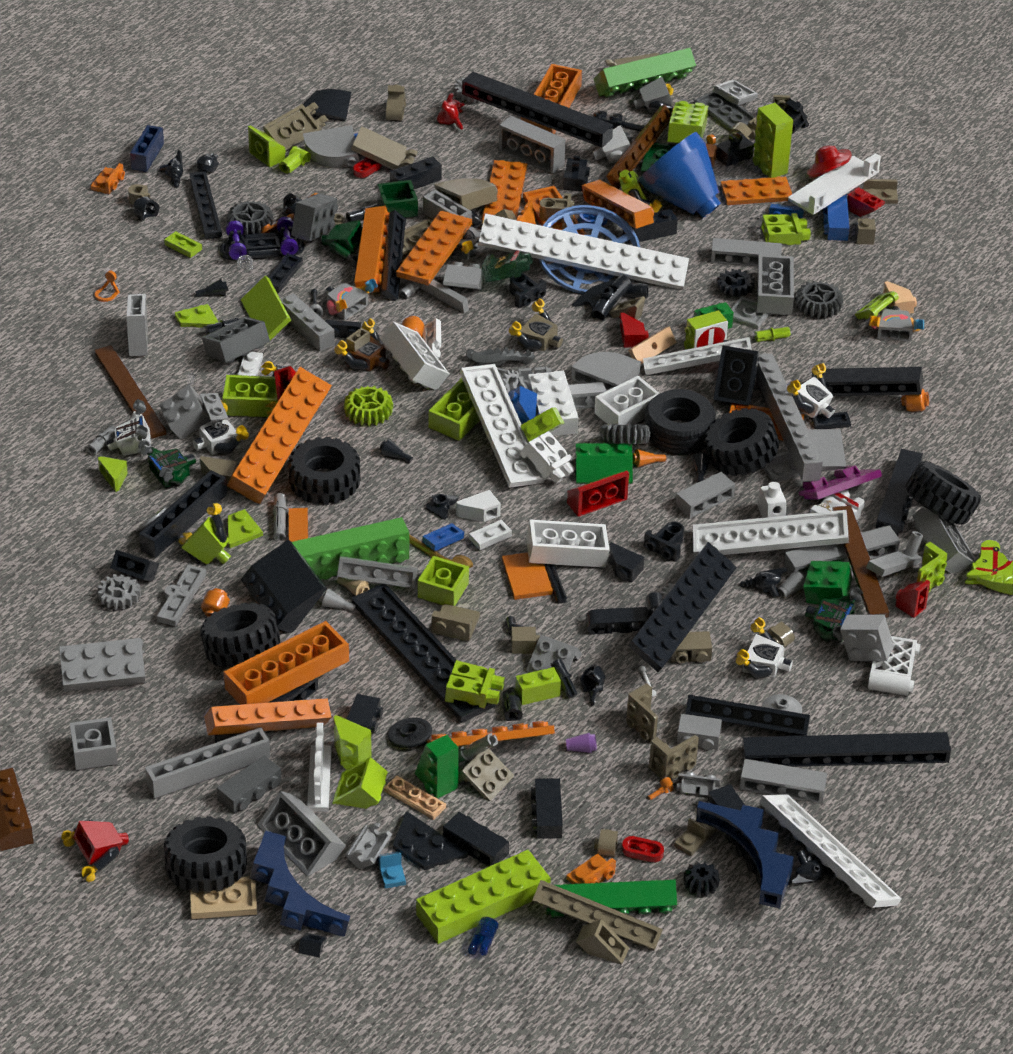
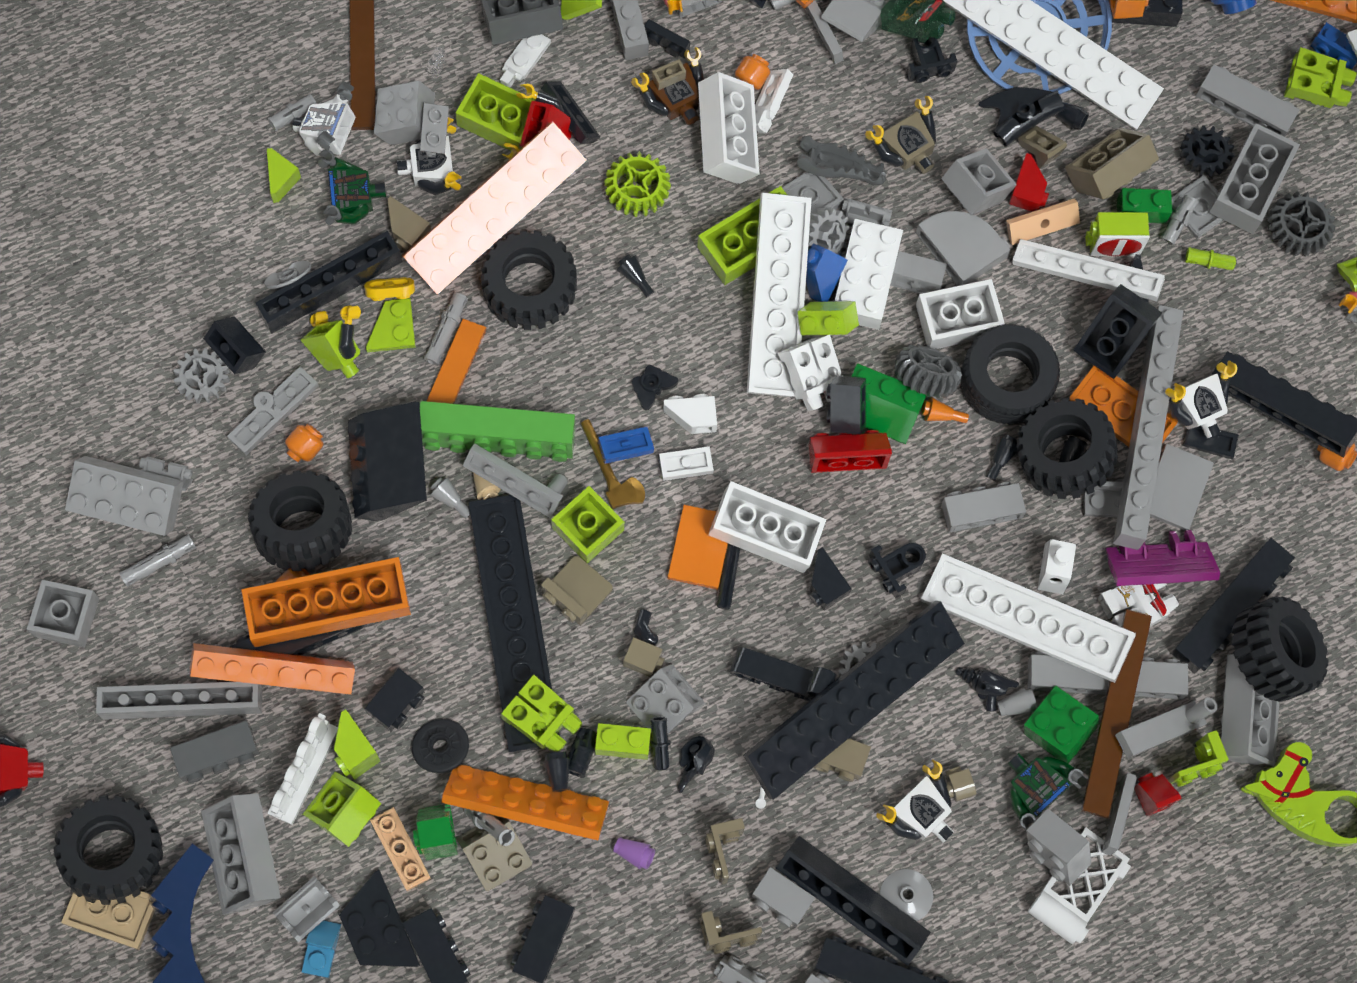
camera: 20 degrees right, 30 degrees up
(150, 692) = (159, 559): none -> light grey pin
(235, 506) = (391, 287): none -> yellow plate
(501, 708) = (557, 770): none -> black cone
(582, 465) = (847, 405): none -> black brick
(598, 334) = (978, 181): none -> light grey brick
(665, 783) = (705, 961): orange hand -> none
(679, 301) = (1112, 163): none -> dark tan brick
(740, 319) = (1179, 219): none -> light grey pin
(895, 616) = (1119, 814): none -> light grey tile

